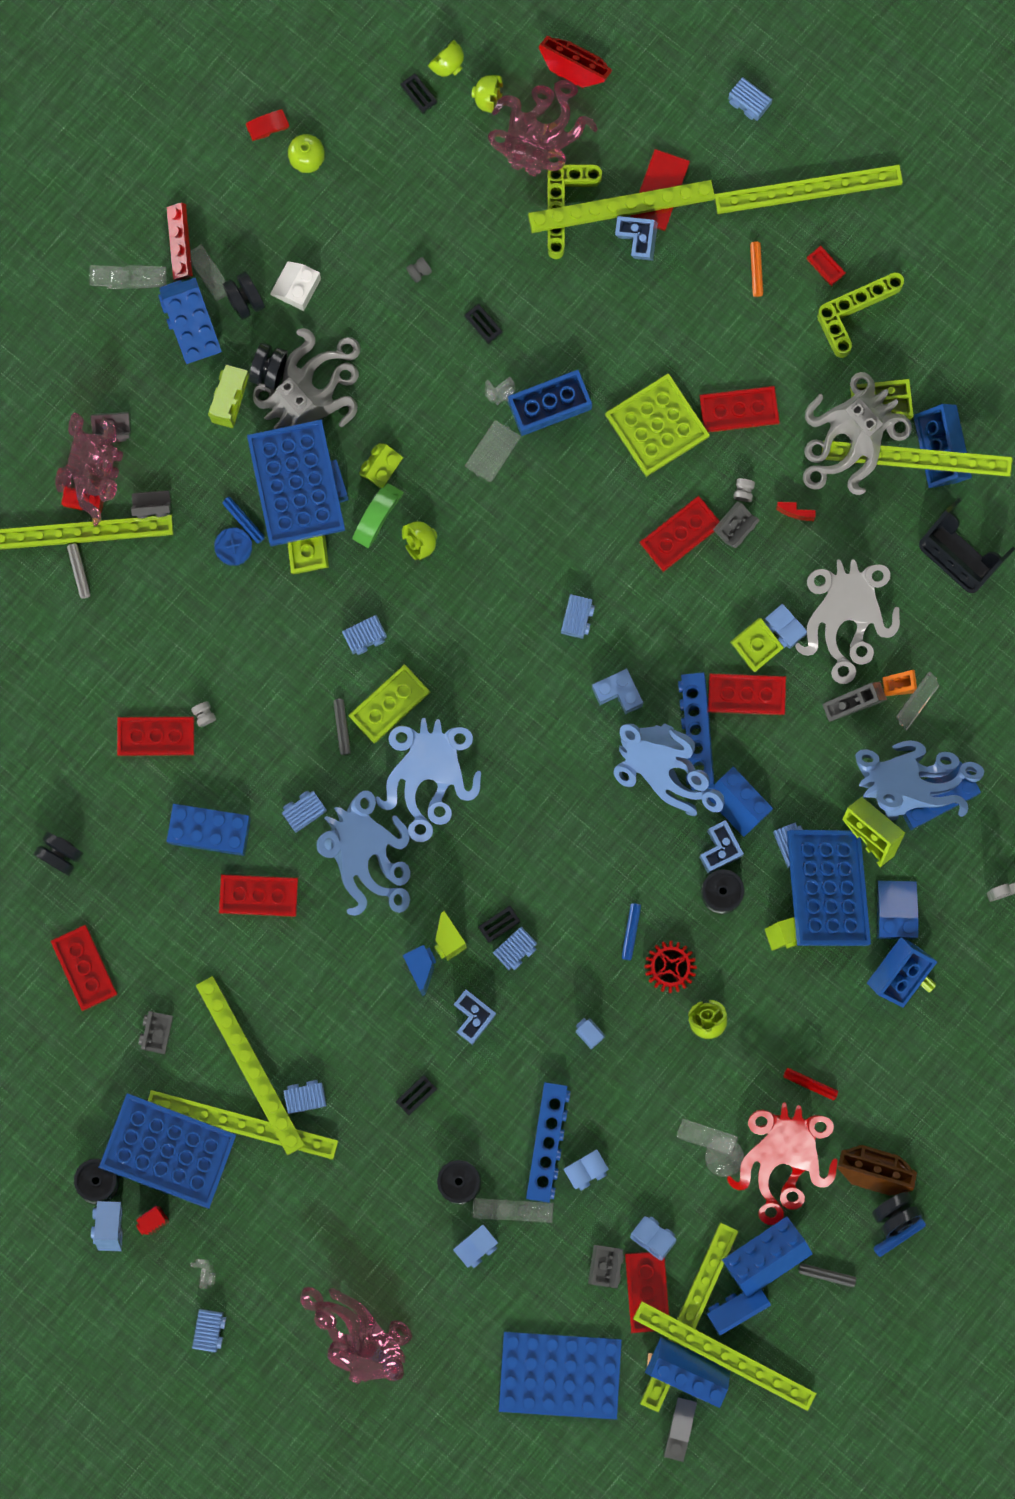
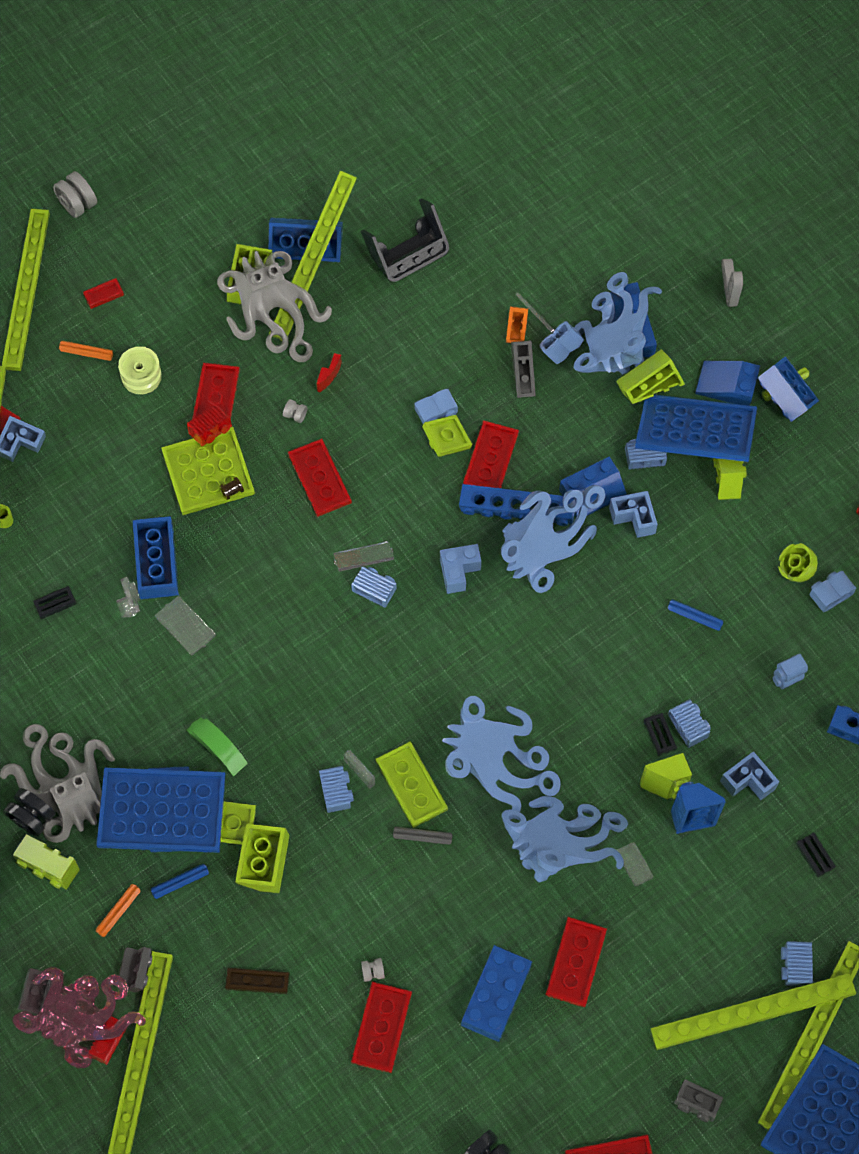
camera: 80 degrees left, 15 degrees down
(78, 570) = (181, 1065): light grey axle -> none
(170, 615) = (257, 981): none -> dark brown tile
(202, 473) = (117, 911): none -> orange axle
(233, 546) = (204, 898): blue tile -> none
(280, 587) = (262, 857): none -> lime slope
(303, 811) = (501, 893): medium blue brick -> none
(364, 928) = (635, 864): none -> clear tile
(380, 465) = (165, 732): lime bracket -> none
(389, 652) = (356, 765): none -> clear tile
(420, 539) = (254, 712): lime cylinder -> none
(605, 598) = (363, 556): none -> clear piece
(639, 452) = (231, 488): none -> dark brown bush
(684, 957) = (726, 594): red gear -> none
(690, 1059) = (832, 591): none -> medium blue brick
(701, 412) = (209, 425): none -> red brick
(727, 881) = (677, 521): black wheel -> none
(736, 525) = (327, 425): dark grey bracket -> none
(737, 320) = (140, 370): none -> yellowish green wheel
(847, 598) = (427, 344): light grey hips -> none
(854, 306) = (148, 279): lime beam -> none
(889, 731) = (561, 342): none -> medium blue brick
(923, 202) = (75, 194): none -> light grey wheel

